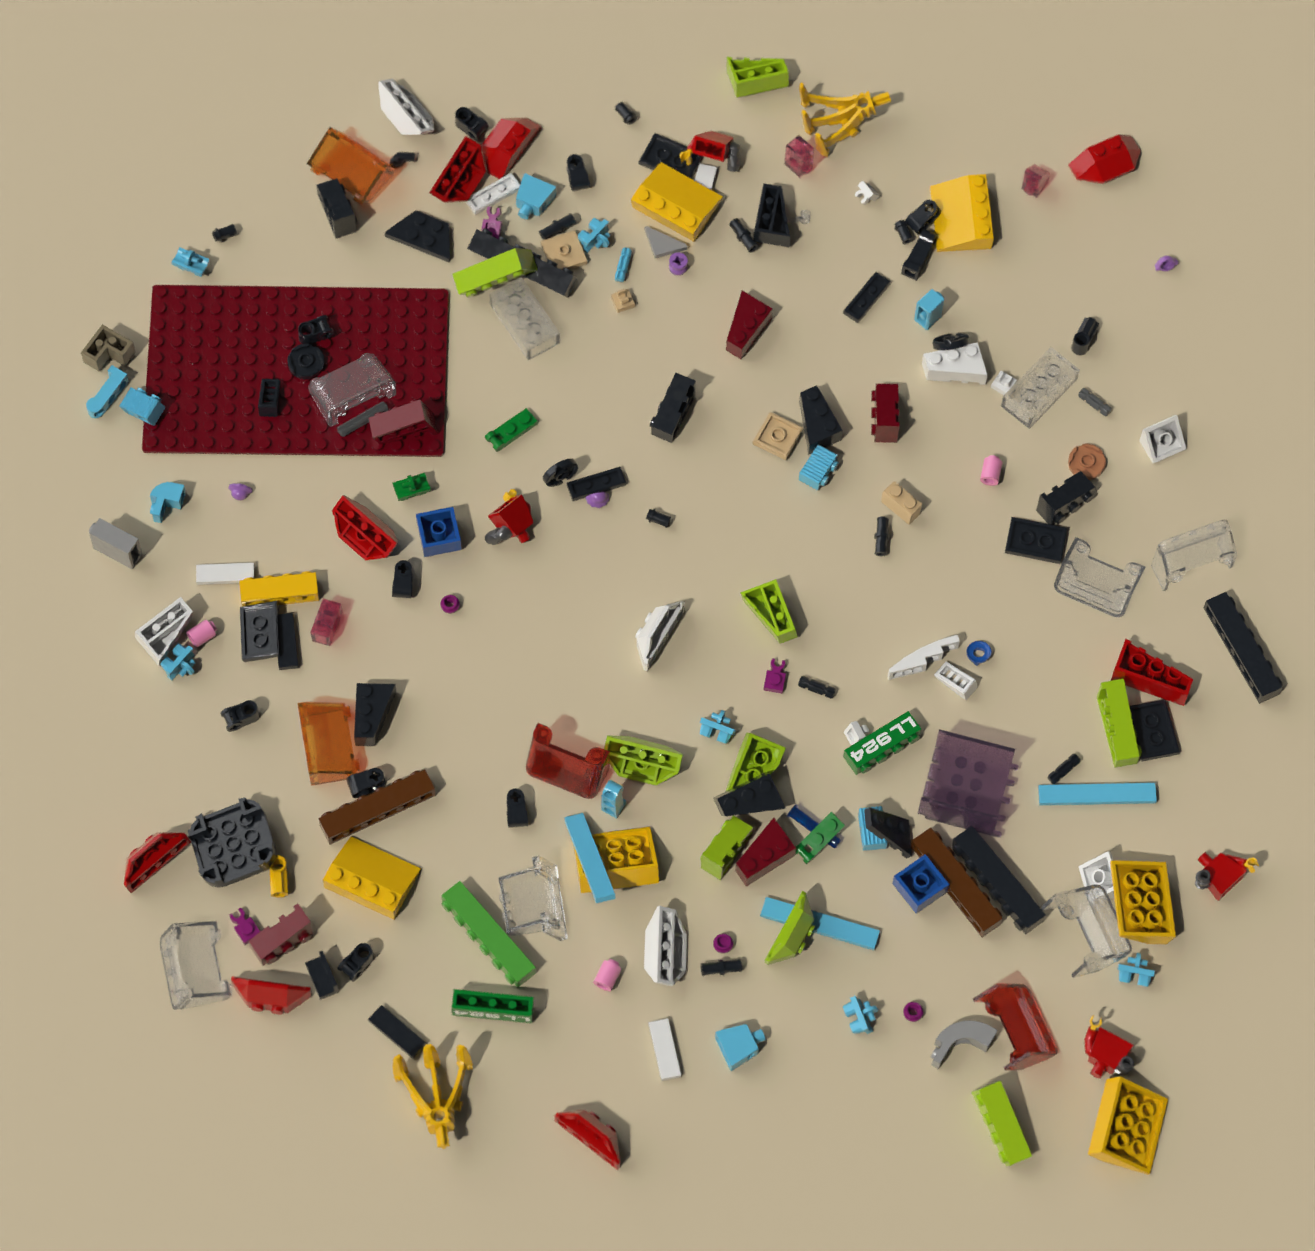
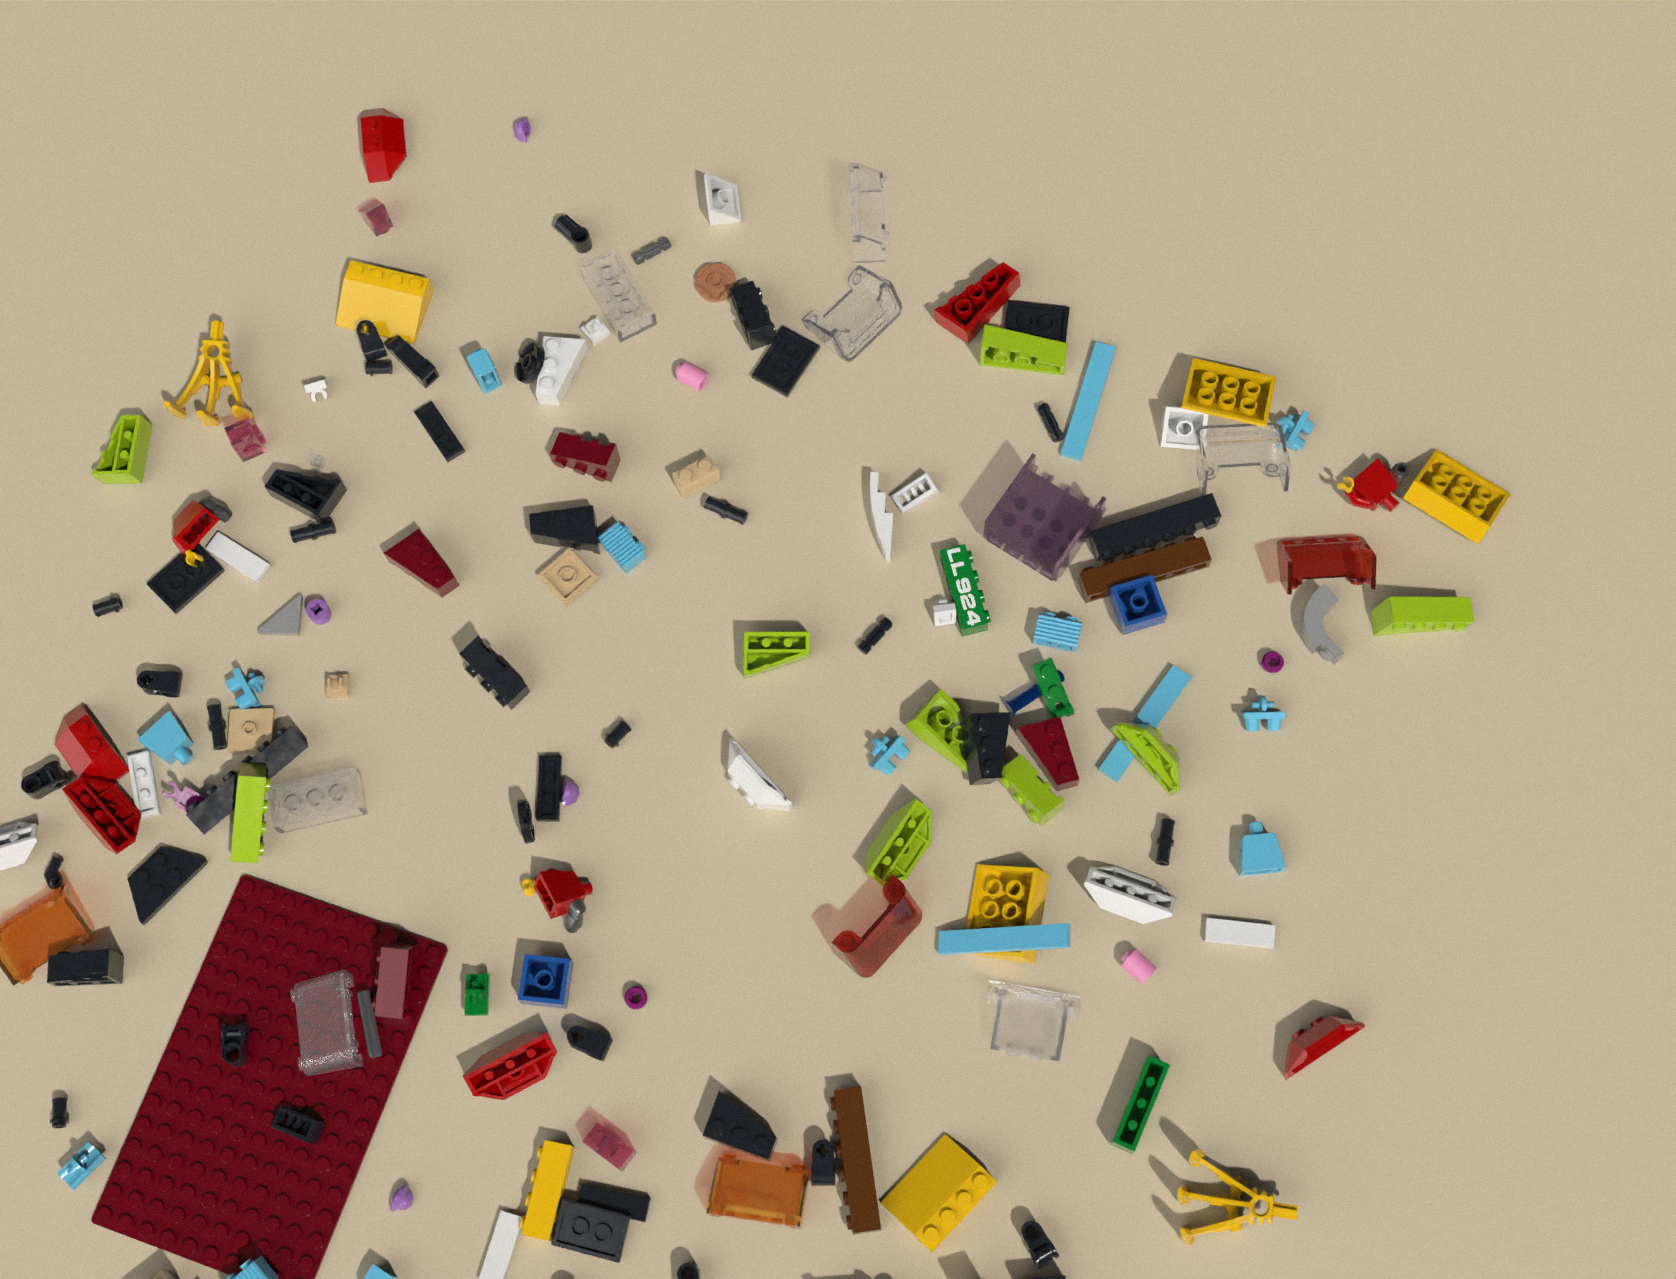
camera: 65 degrees left, 5 degrees up
(306, 361) = (269, 1067): black tile -> none
(397, 1031) = (1132, 1223): black tile -> none
(488, 934) = (1050, 1082): bright green brick -> none
(511, 429) = (447, 859): green plate -> none
(516, 810) = (916, 1003): black piece -> none
(612, 799) = (940, 891): medium azure leg -> none
(623, 264) = (294, 671): medium azure axle -> none
(676, 201) = (242, 587): yellow slope -> none
(723, 943) = (1137, 831): magenta plate -> none
(775, 679) = (850, 676): magenta plate -> none
(891, 828) = (1069, 613): black wing -> none
(978, 645) = (887, 453): blue piece -> none
(1222, 872) = (1215, 311): red torso -> none
(1242, 647) = (977, 207): black brick -> none

